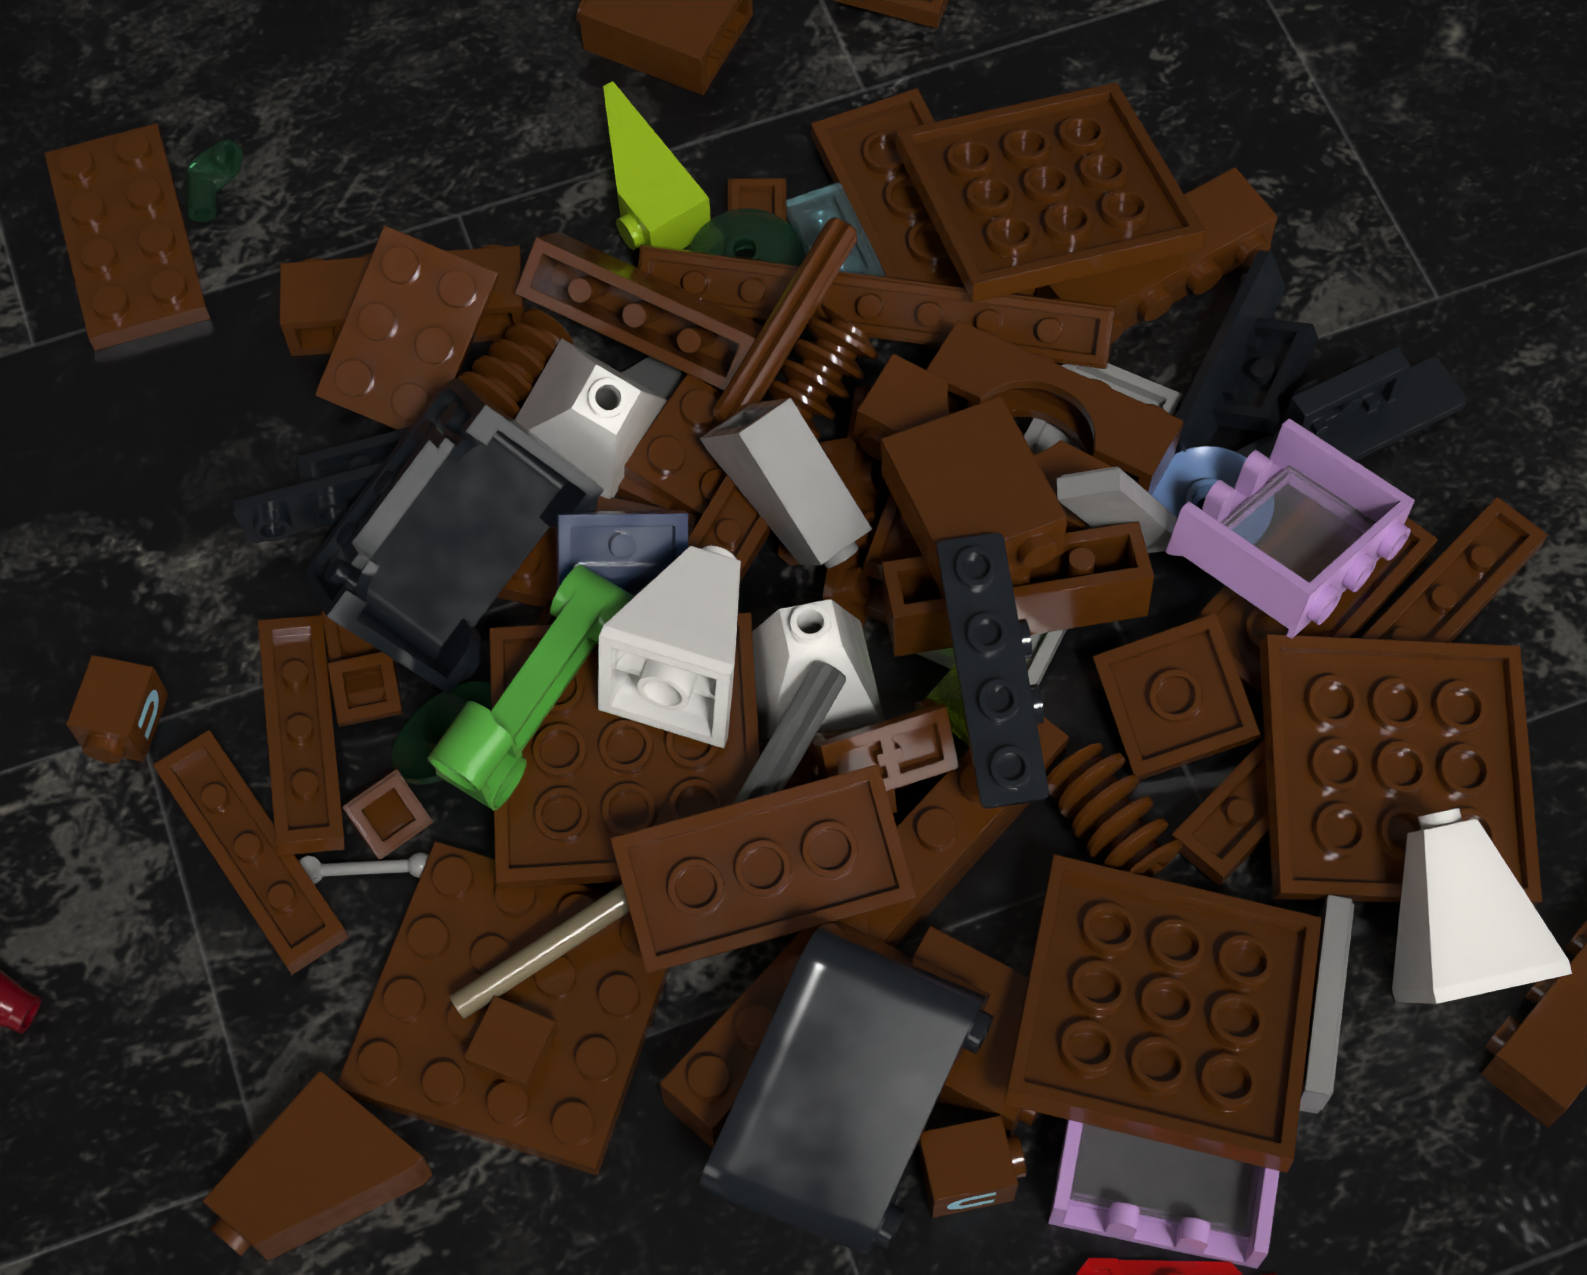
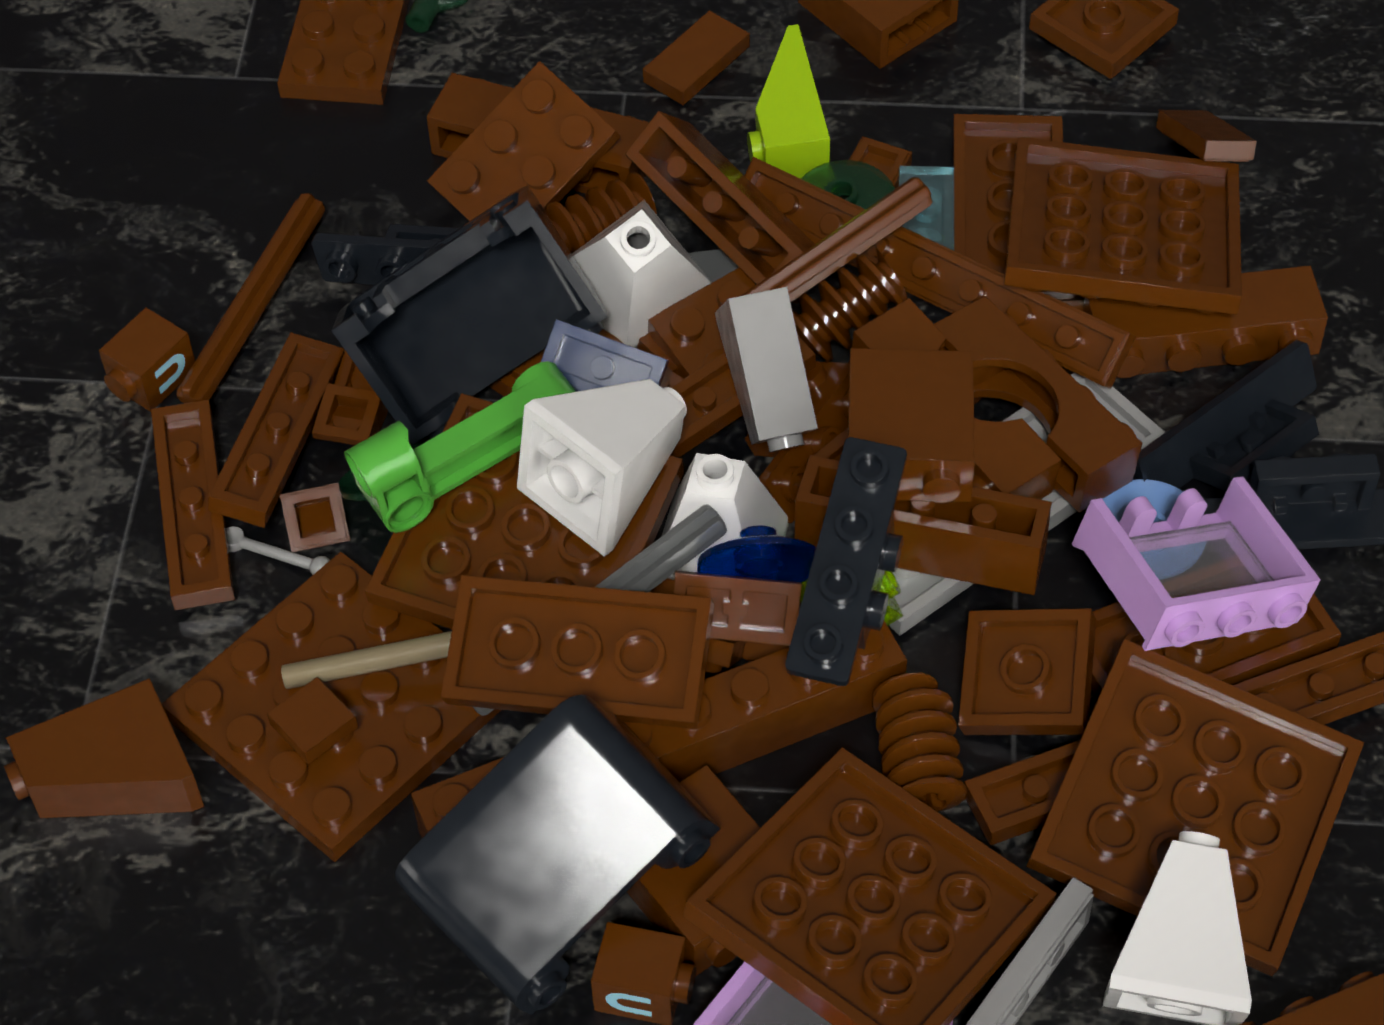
camera: 25 degrees right, 10 degrees down
(190, 599) = (251, 300): none -> reddish brown axle
(514, 150) = (696, 57): none -> reddish brown tile
(885, 690) = (760, 554): none -> clear blue dish
(1066, 60) = (1206, 135): none -> reddish brown tile
(1114, 498) = (1032, 472): light grey tile -> none

